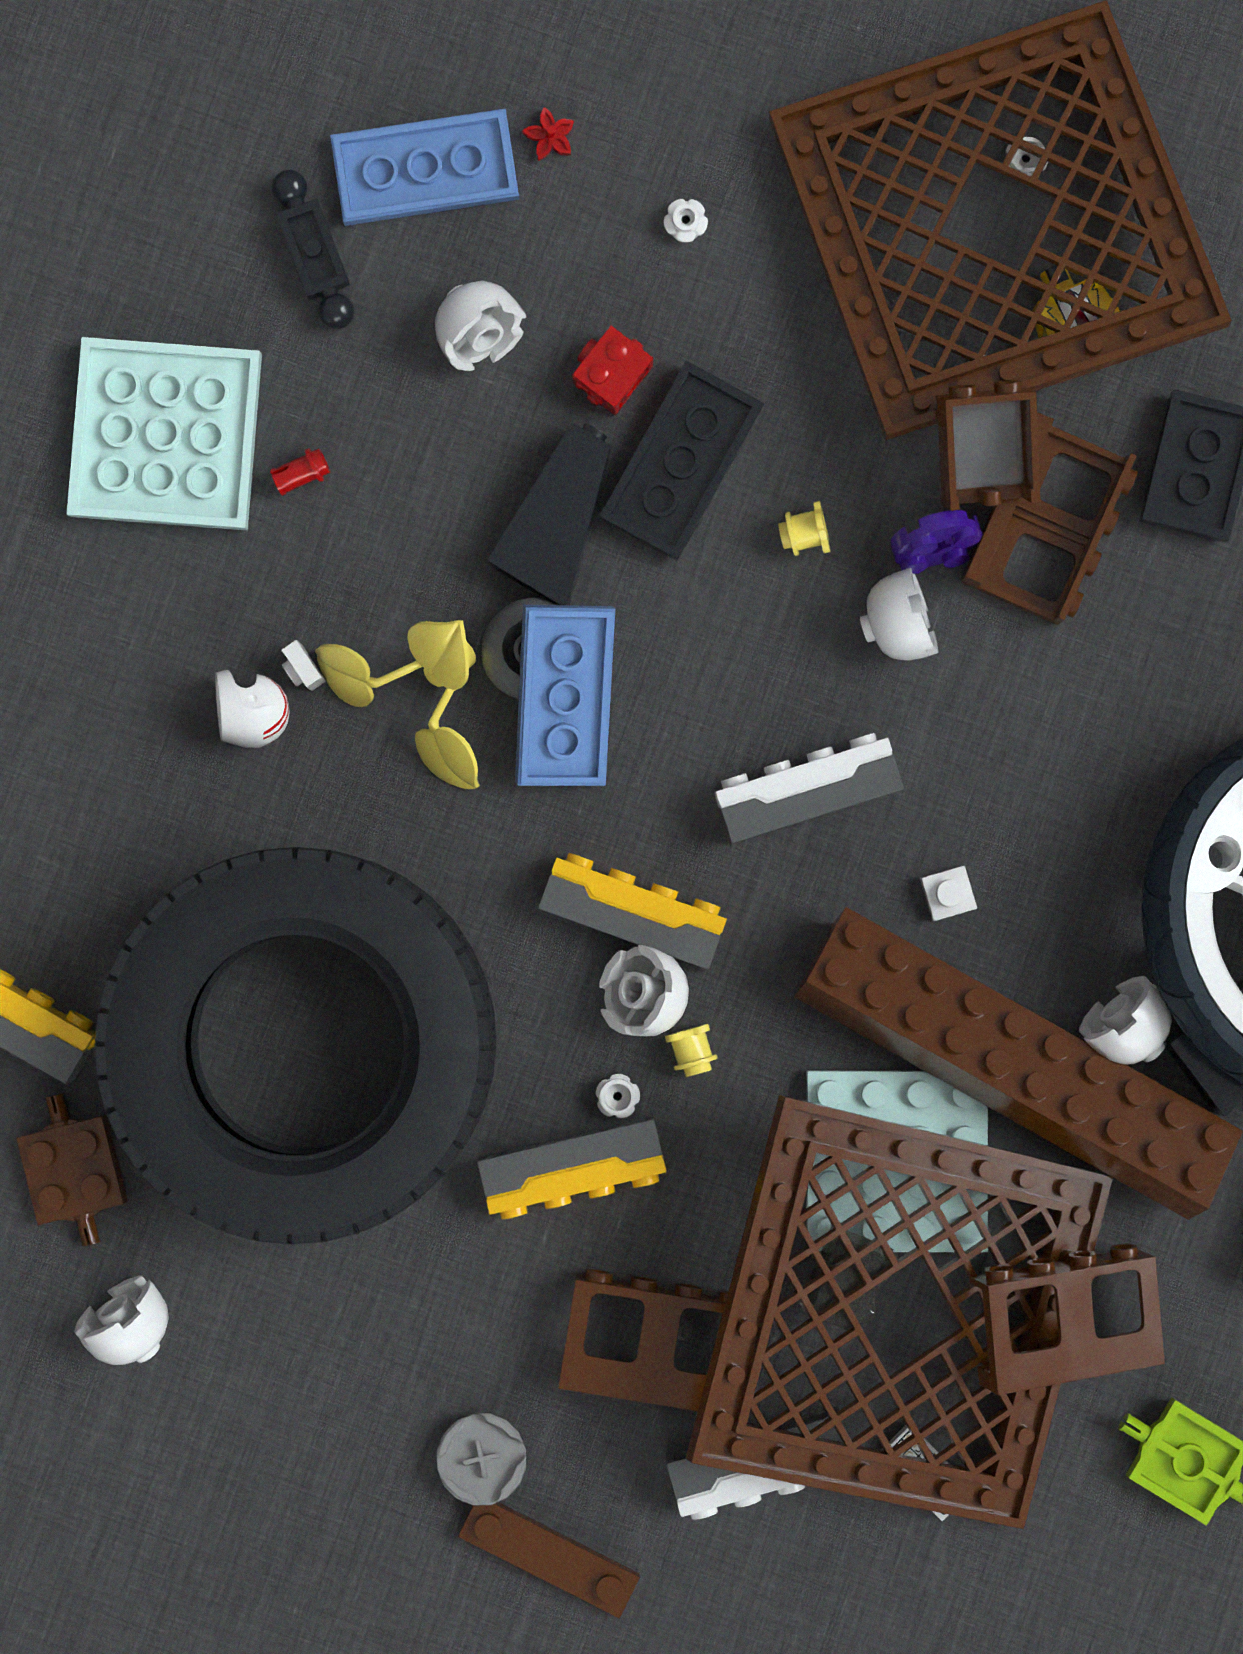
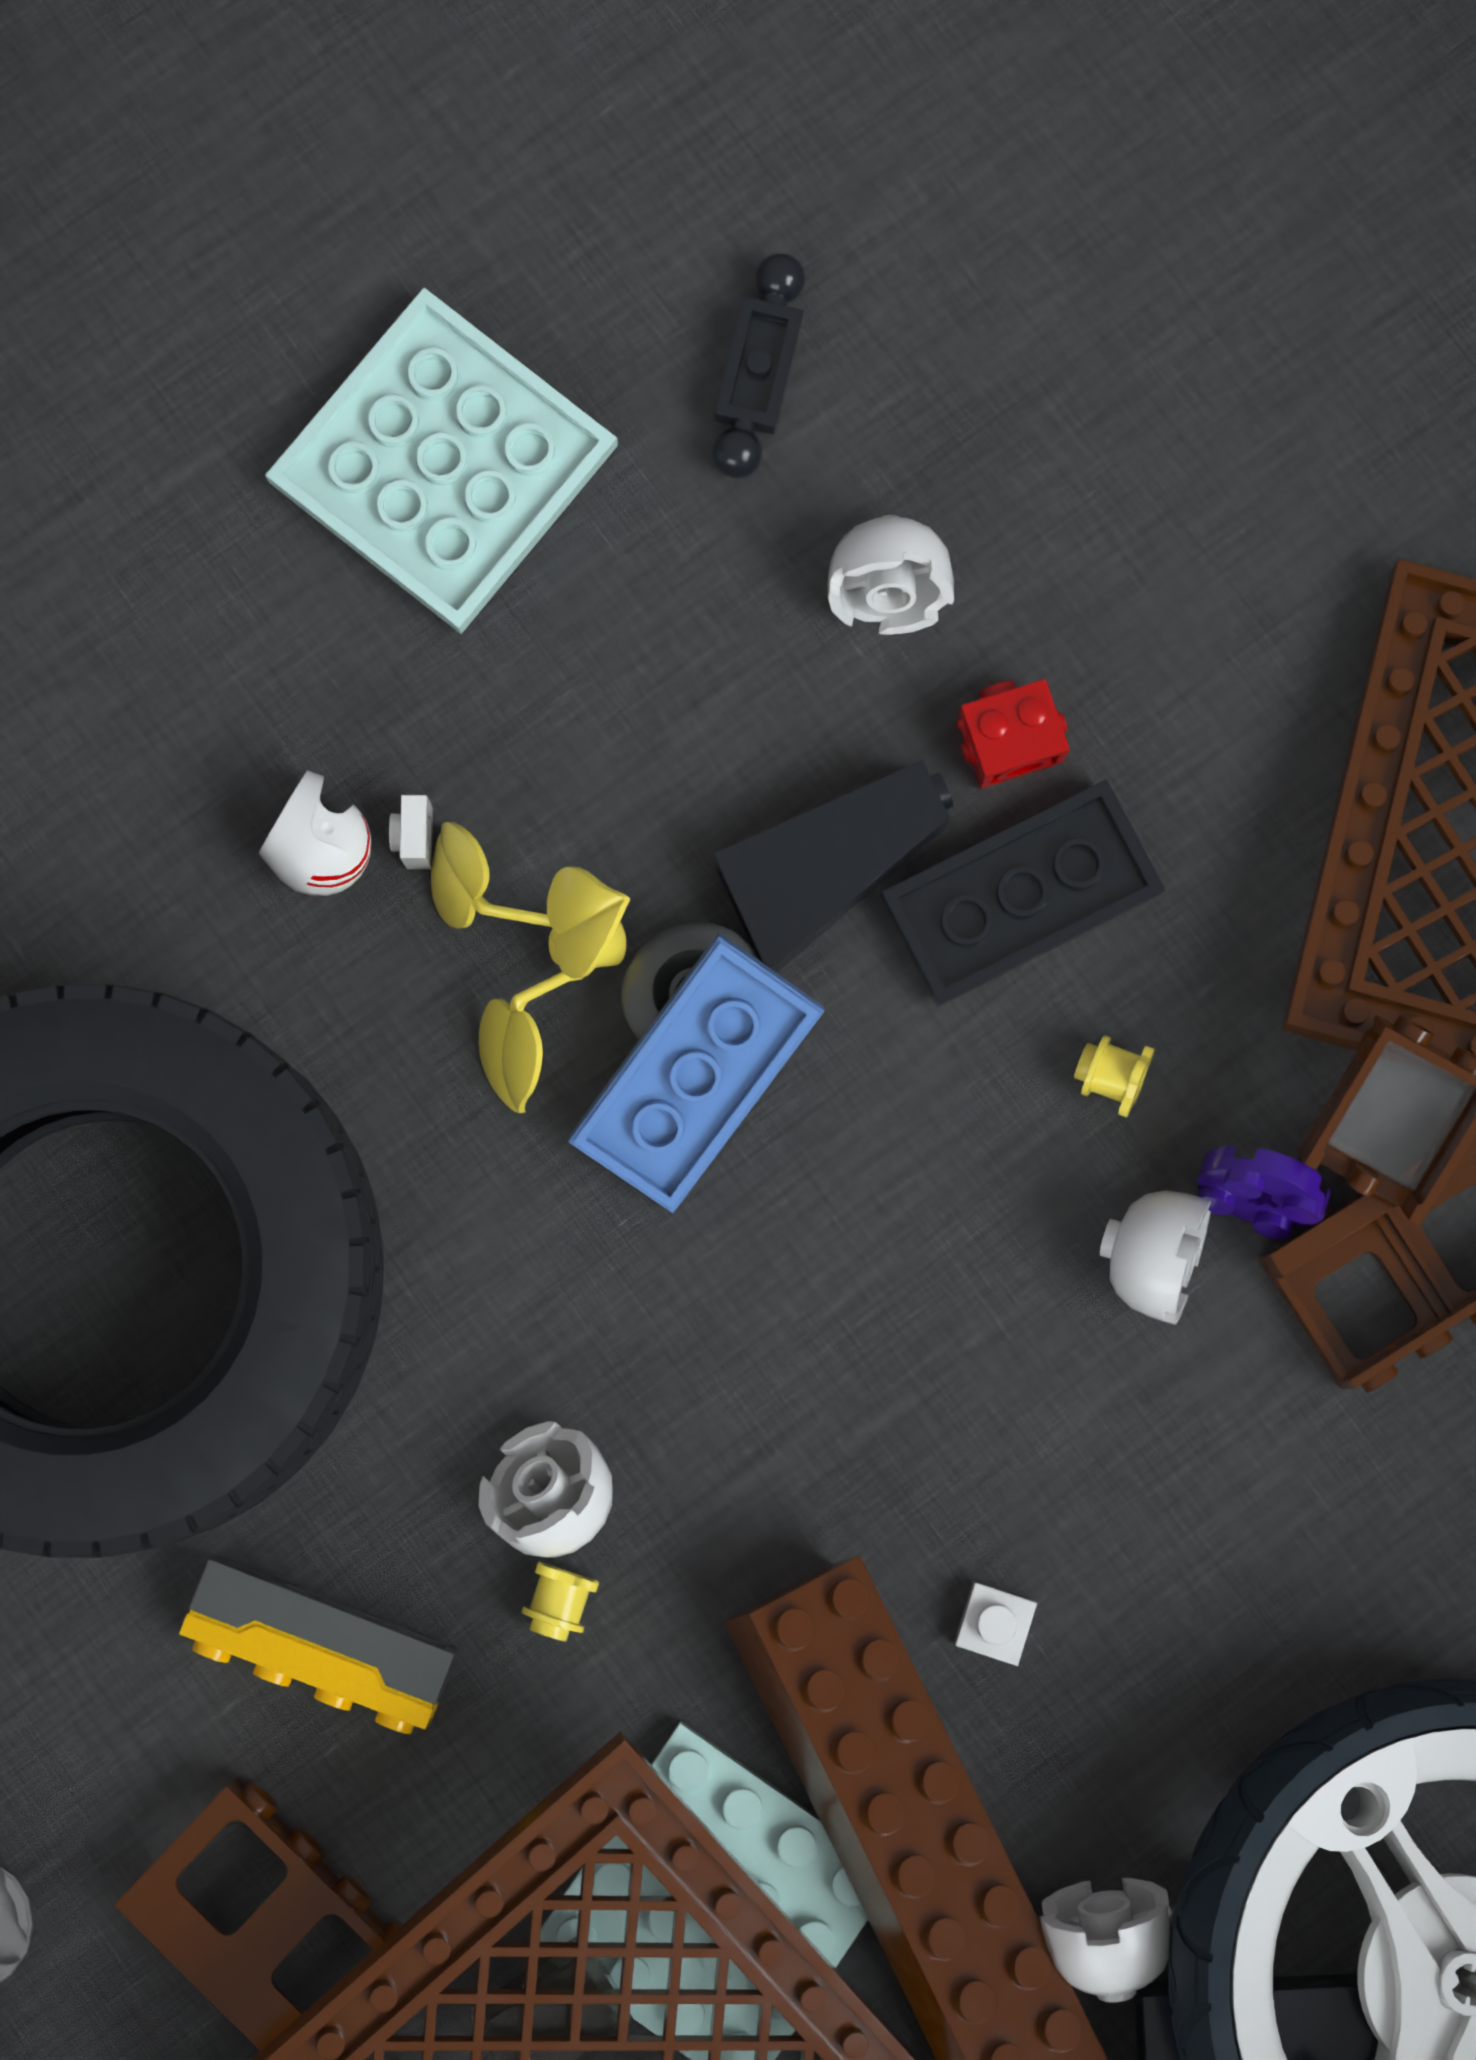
camera: 30 degrees right, 5 degrees down
(300, 471) = (569, 607): red pin -> none
(424, 167) = (952, 359): medium blue tile -> none
(550, 135) = (1123, 418): red plant -> none
(610, 1106) = (415, 1601): white plate -> none
(633, 912) = (600, 1386): piece -> none
(680, 230) = (1210, 634): white plate -> none
(808, 790) = (910, 1383): piece -> none

